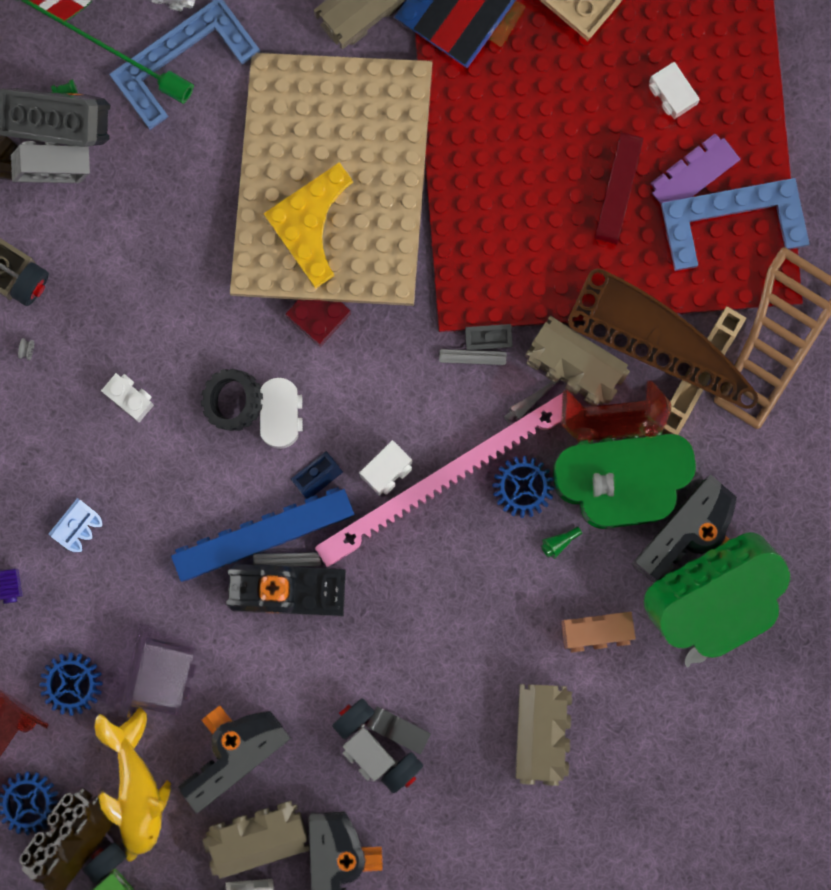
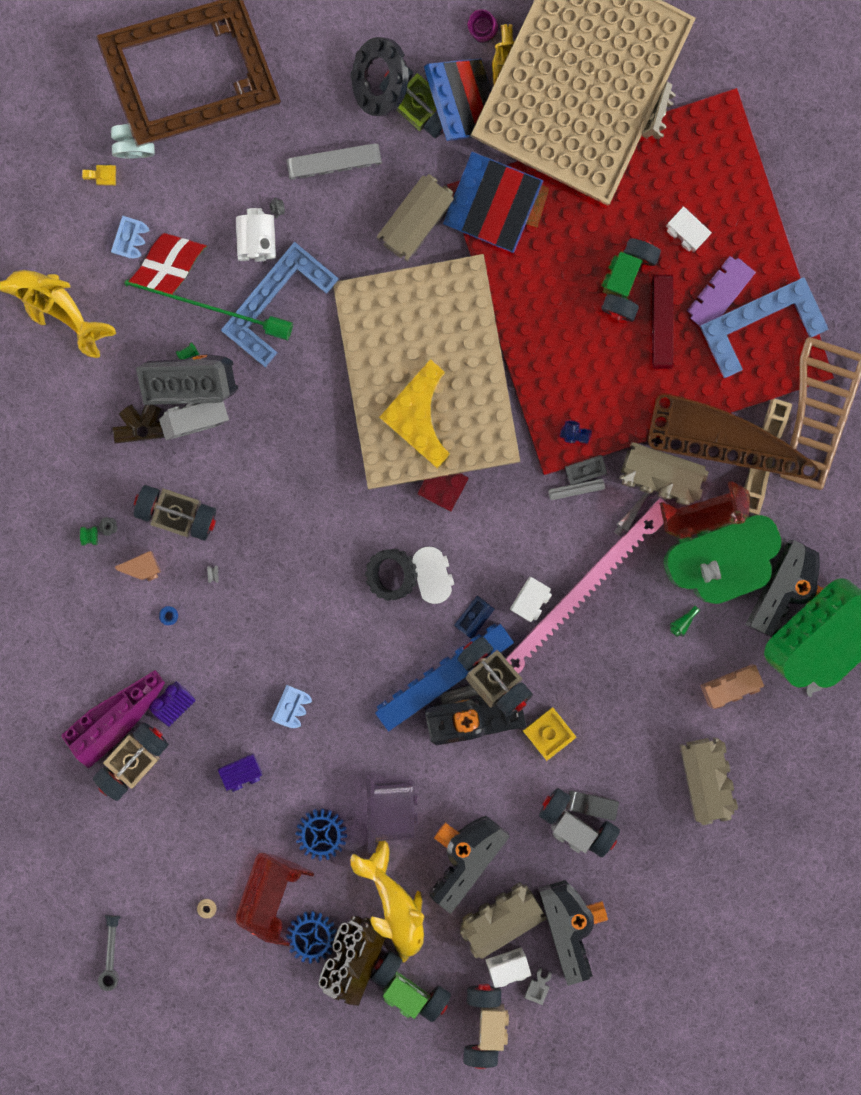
camera: 10 degrees left, 5 degrees up
(127, 397) = (306, 593): white brick -> none
(318, 545) = (494, 677): none -> brick
(369, 633) = (549, 733): none -> yellow plate
(483, 288) = (572, 433): none -> clear blue plate
(535, 471) = (639, 594): blue gear -> none
(583, 124) = (622, 275): none -> brick

